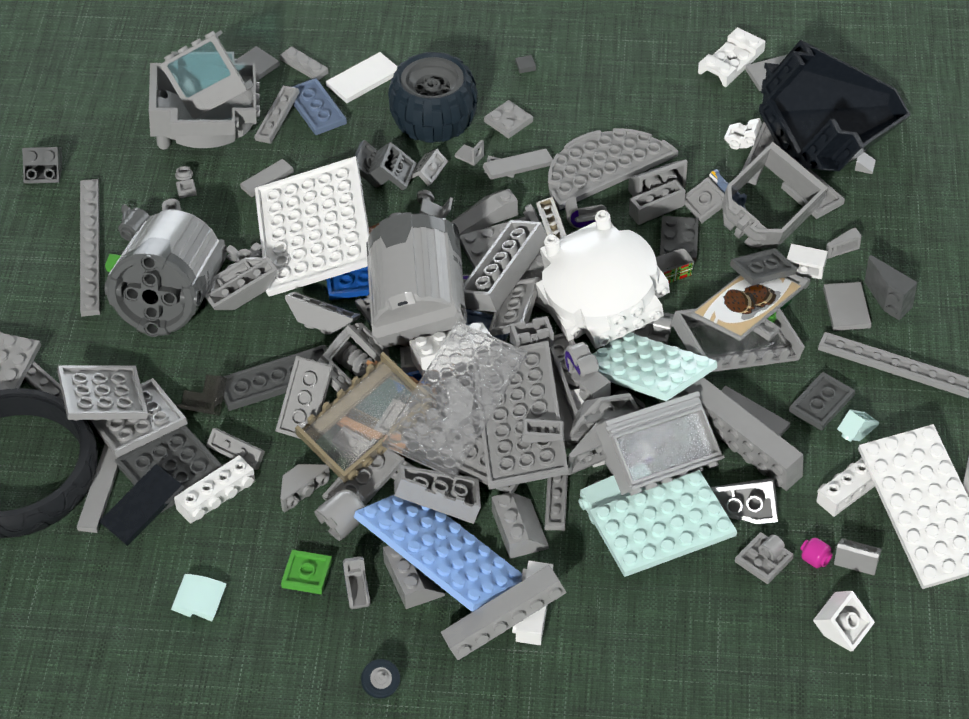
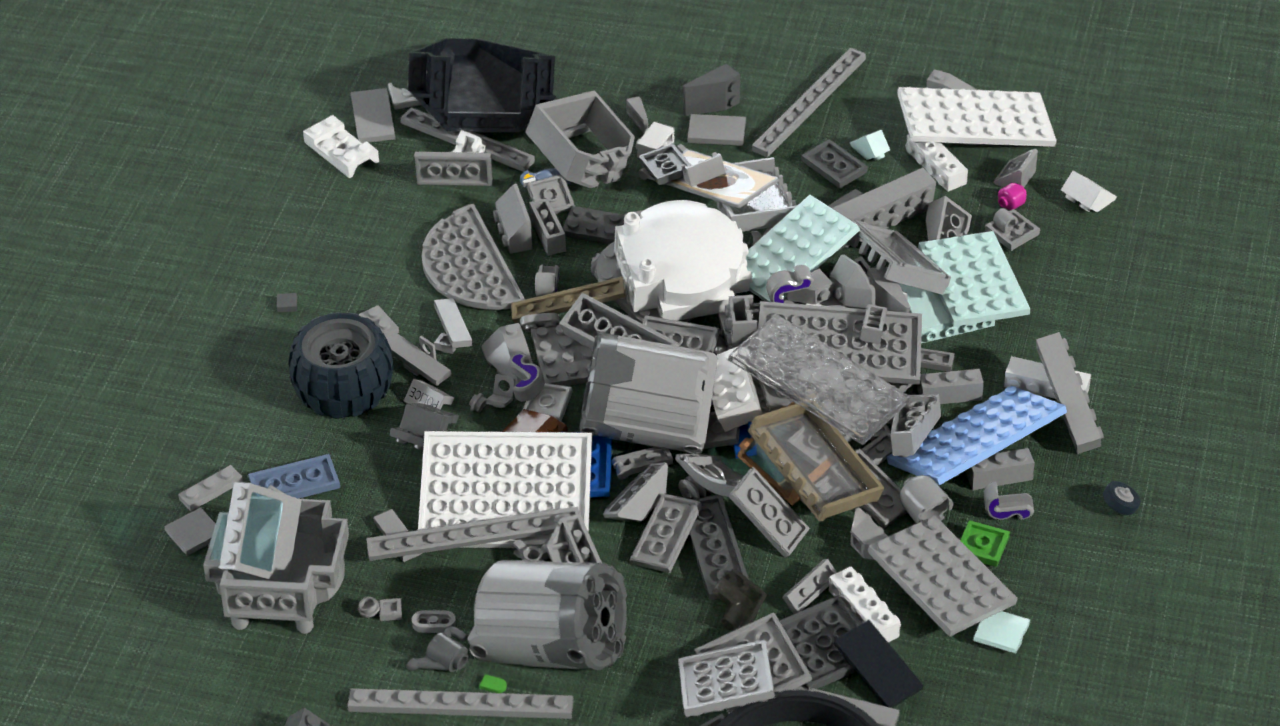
camera: 80 degrees left, 5 degrees down
(250, 538) = (942, 575): none -> light grey plate
(261, 216) = (466, 534): none -> light grey plate
(286, 340) = (665, 533): none -> light grey tile
(362, 77) = (256, 438): white tile -> none
(459, 211) = (531, 377): none -> light grey animal
(463, 152) = (418, 359): none -> light grey tile
(713, 127) = (453, 168): none -> light grey tile
(748, 289) = (704, 170): none -> light grey hinge

